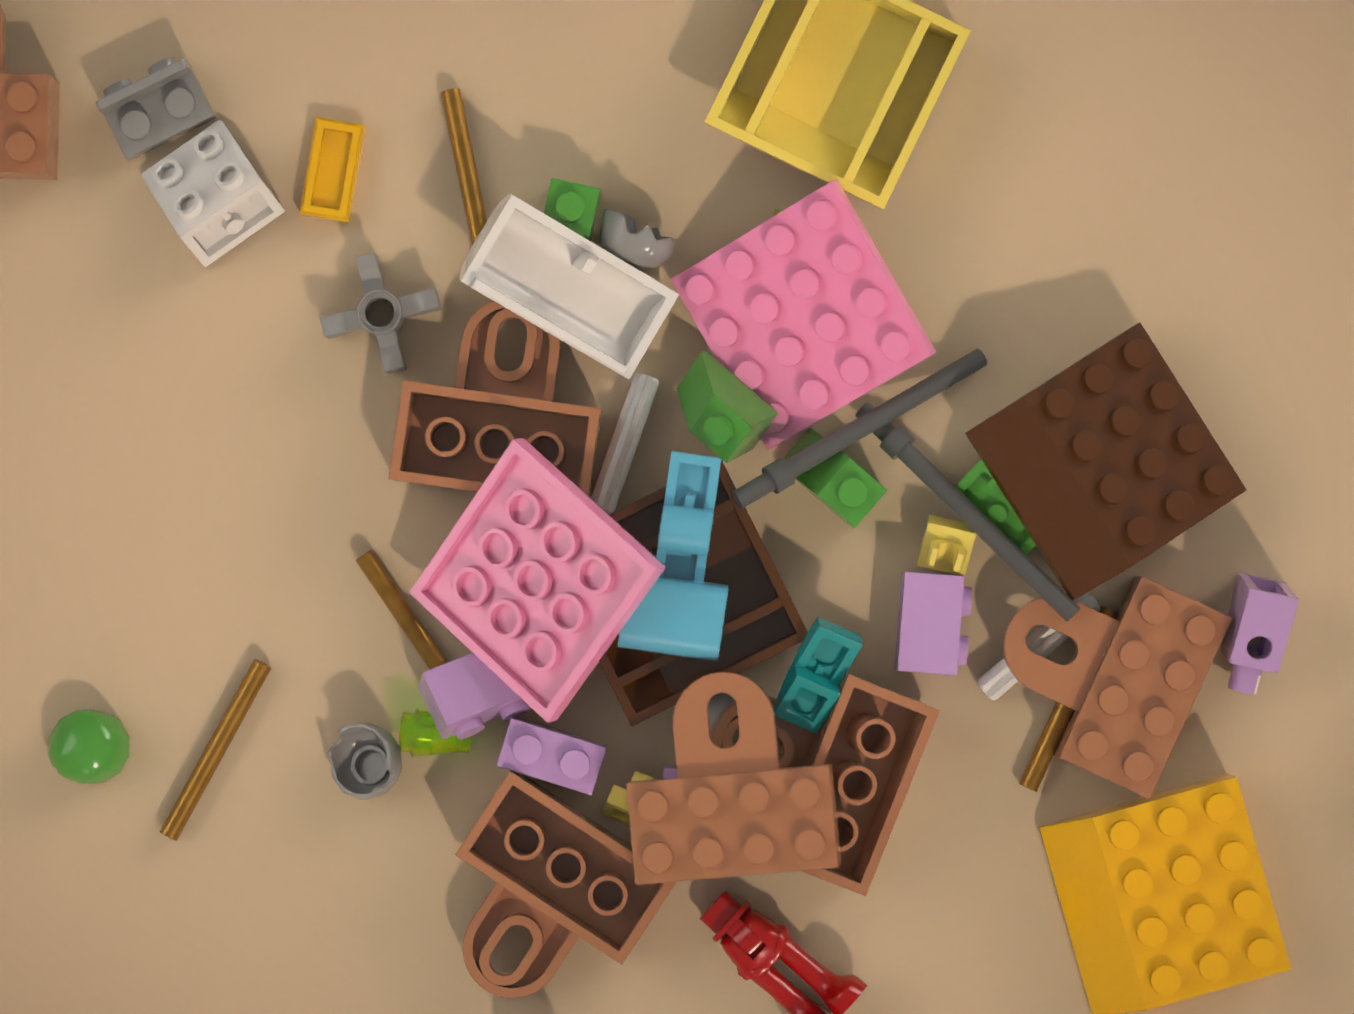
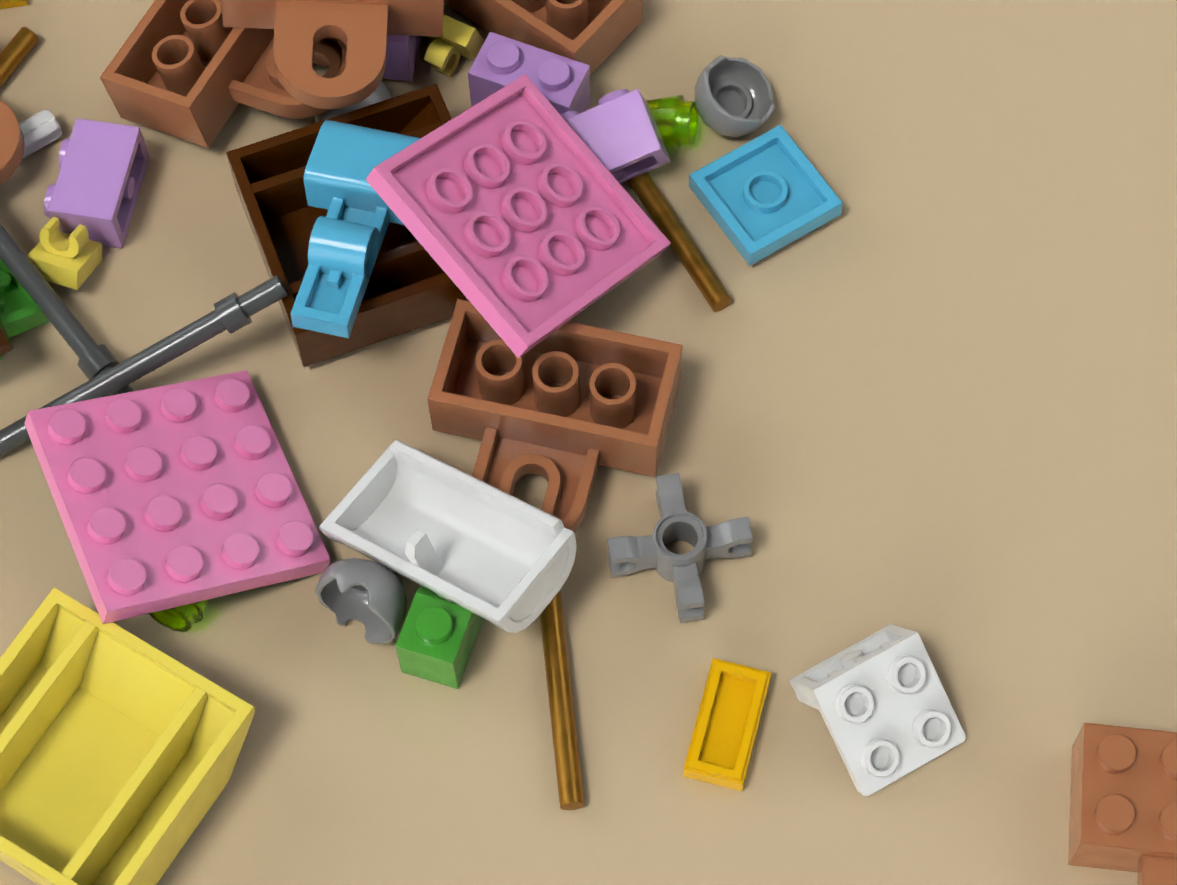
camera: 175 degrees left, 25 degrees down
(88, 746) = (1040, 139): bright green hair -> none
(155, 107) = (943, 814): light grey bracket -> none
(215, 749) = (899, 129): pearl gold bar -> none
(331, 664) = (765, 194): none -> medium azure plate
(624, 442) = (408, 393): white axle -> none
(722, 409) = (289, 402): bright green slope -> none
(815, 675) = (230, 114): teal slope -> none
(839, 483) = (159, 306): bright green slope -> none

